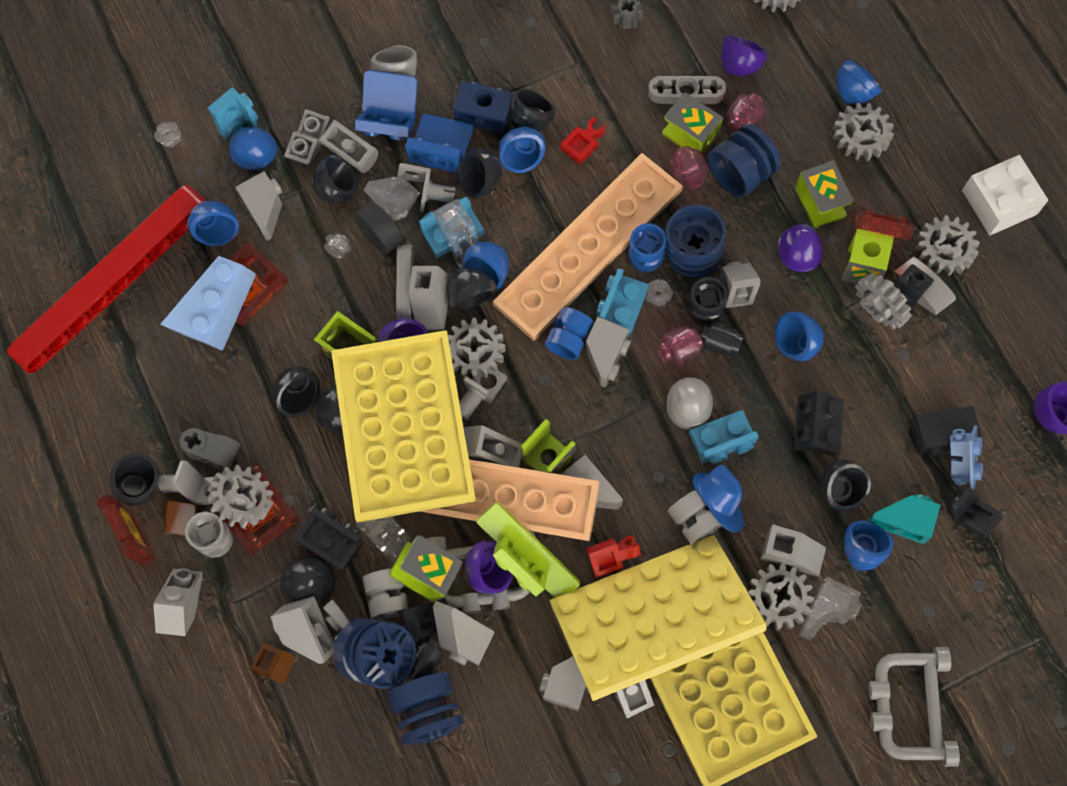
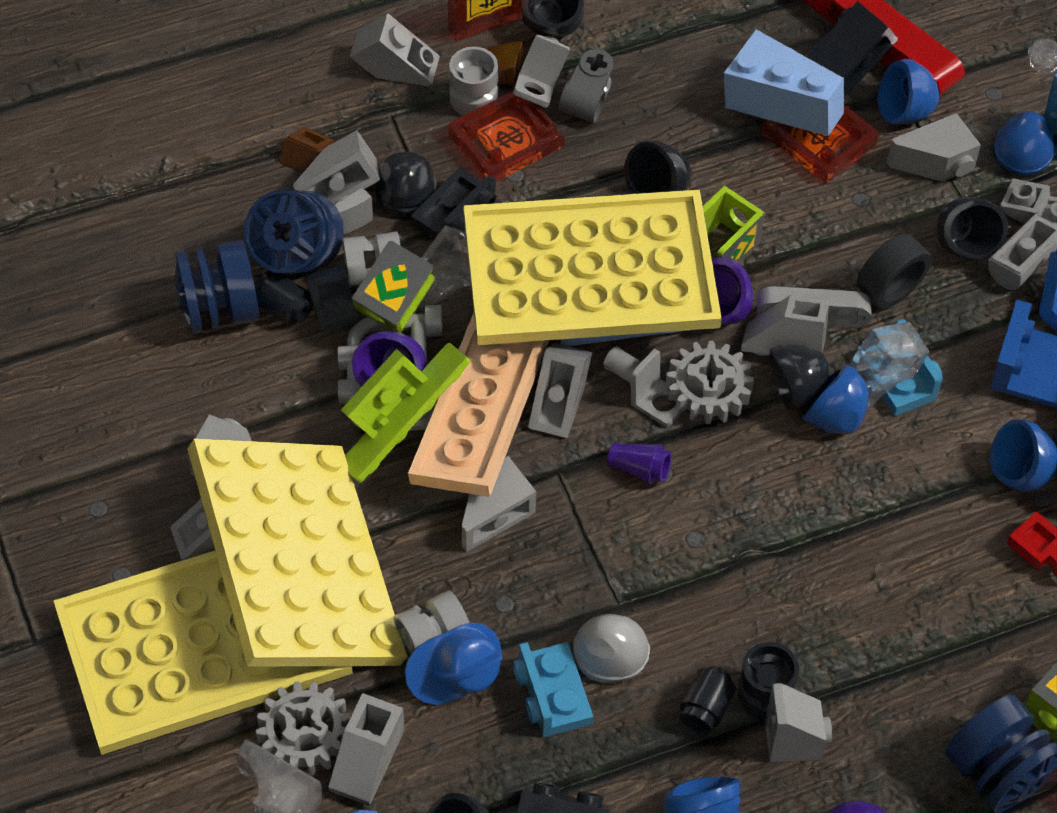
camera: 90 degrees right, 15 degrees down
(173, 258) = (853, 45): none -> black brick
(240, 496) = (512, 92): light grey gear -> none
(337, 245) = (874, 233): clear plate -> none
(393, 195) = (940, 285): clear arch -> none
(430, 190) = (959, 342): light grey bracket -> none
(461, 634) = (307, 333): light grey slope -> none
(479, 173) = (984, 403): black hat -> none
(541, 441) = (561, 442): lime piece -> none
(542, 391) = (642, 461): none -> dark purple cone
(568, 336) = (718, 493): blue wheel -> none
(587, 246) = (872, 542): light nougat plate -> none
(604, 348) = (697, 541): light grey slope -> none
(608, 556) = (389, 518): red plate -> none
(623, 300) = (774, 574): dark azure bracket -> none
(647, 247) = (858, 608): blue wheel -> none
(661, 286) = (789, 616): clear plate -> none
(680, 345) = (699, 641): clear pink head -> none
(688, 167) = (997, 679): clear pink head -> none
(700, 228) = (864, 669): dark blue wheel -> none

